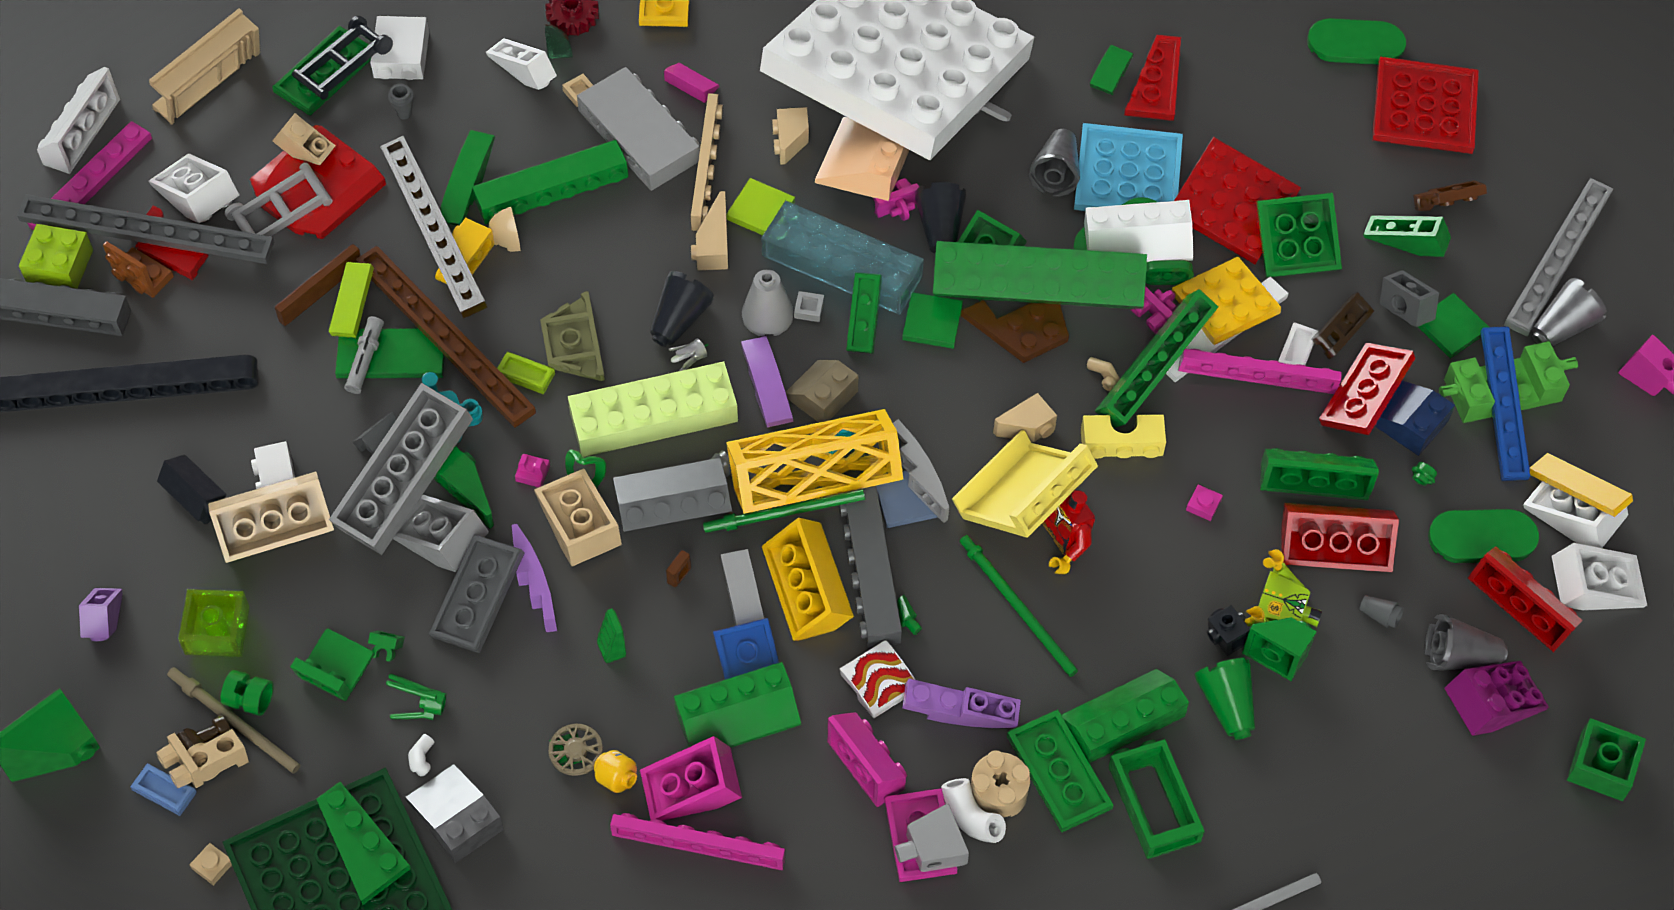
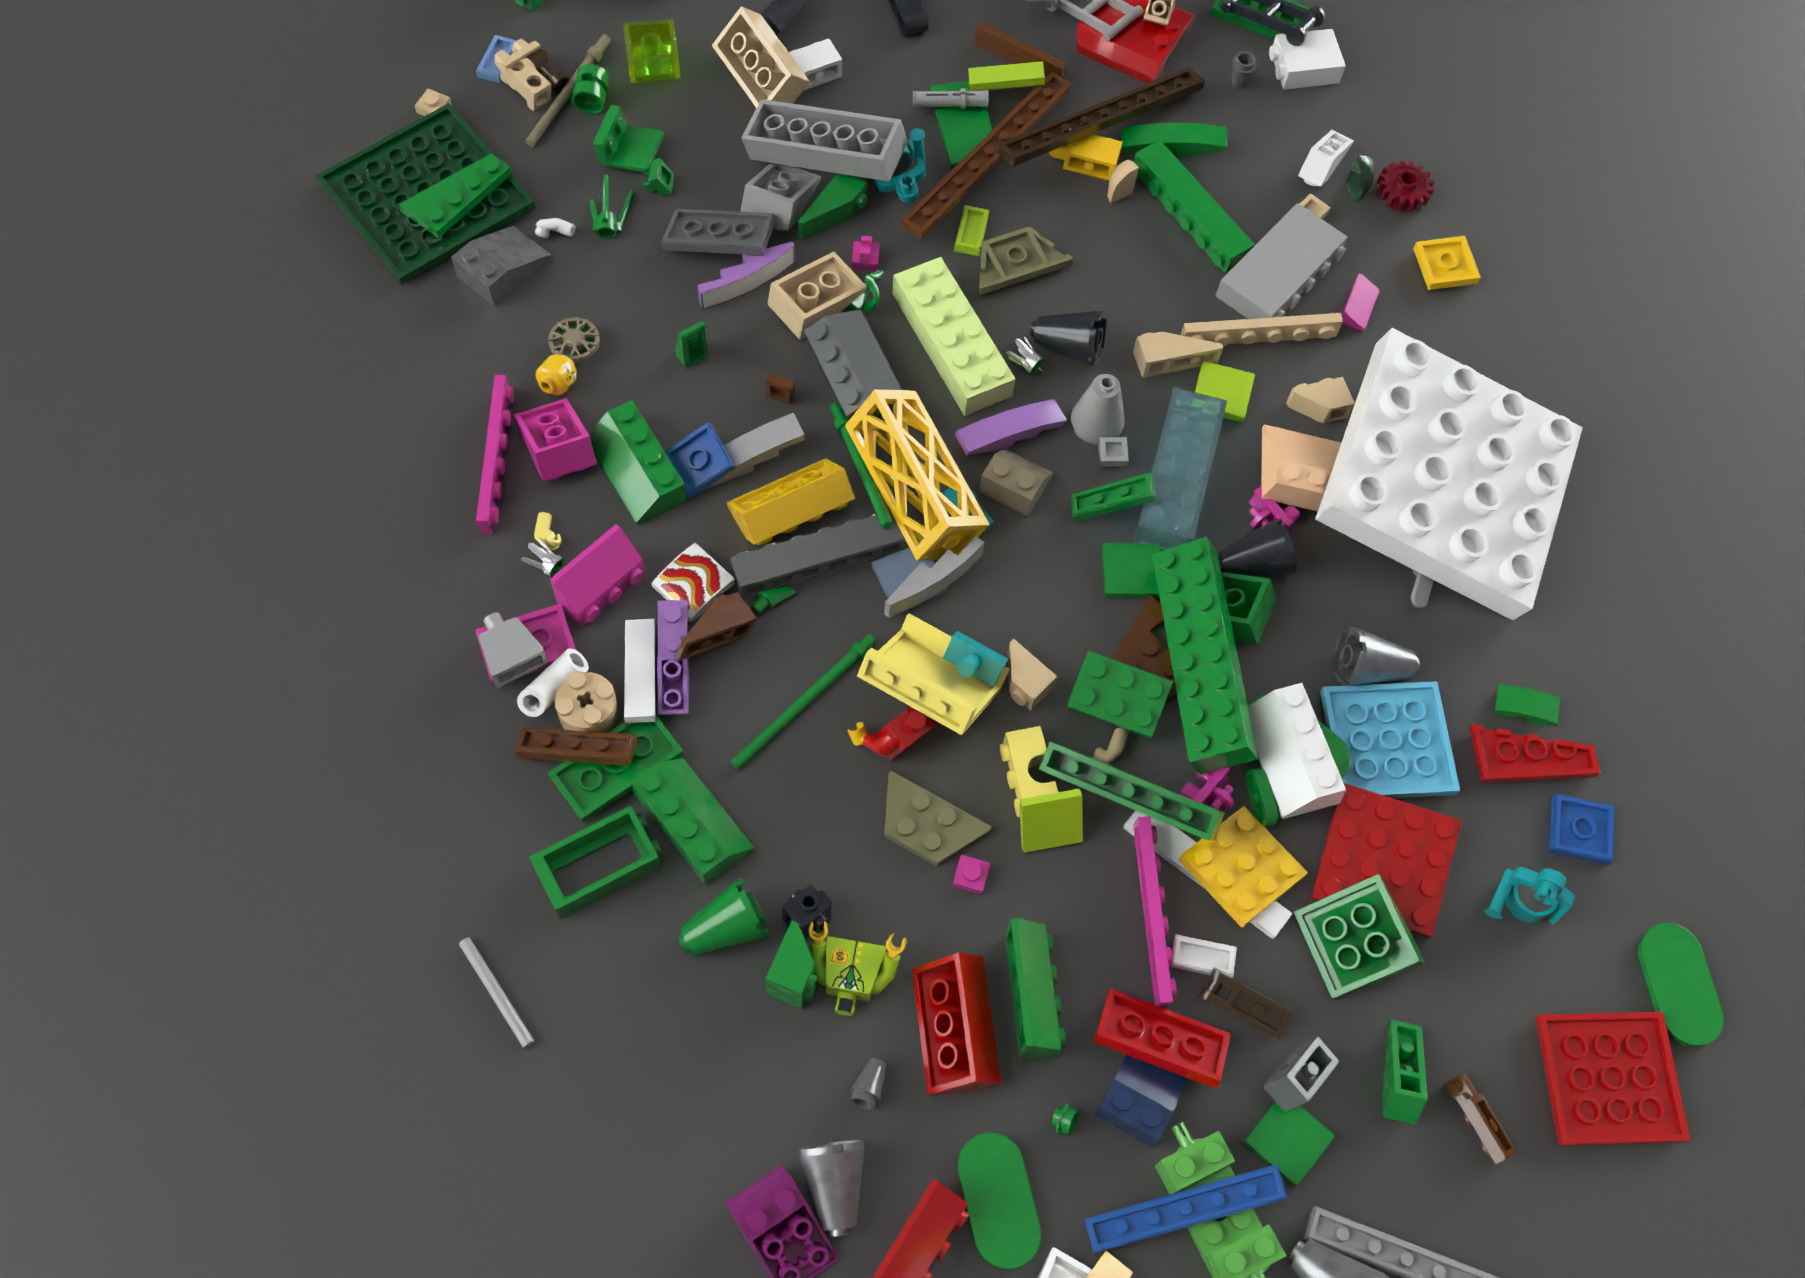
camera: 75 degrees right, 5 degrees up
(800, 807) = (543, 531): none -> light yellow arm
(834, 801) = (551, 563): none -> flat silver piece
(938, 659) = (723, 622): none -> reddish brown slope
(968, 735) = (639, 671): none -> white tile
(1009, 453) = (974, 659): none -> teal tile
(1041, 799) = (576, 746): none -> reddish brown tile
(1063, 350) = (1119, 695): none -> green brick
(1151, 527) = (927, 822): none -> olive wing
(1172, 425) = (1051, 820): none -> lime tile
(1222, 65) = (1582, 829): none -> blue tile
(1279, 109) = (1532, 895): none -> teal piece

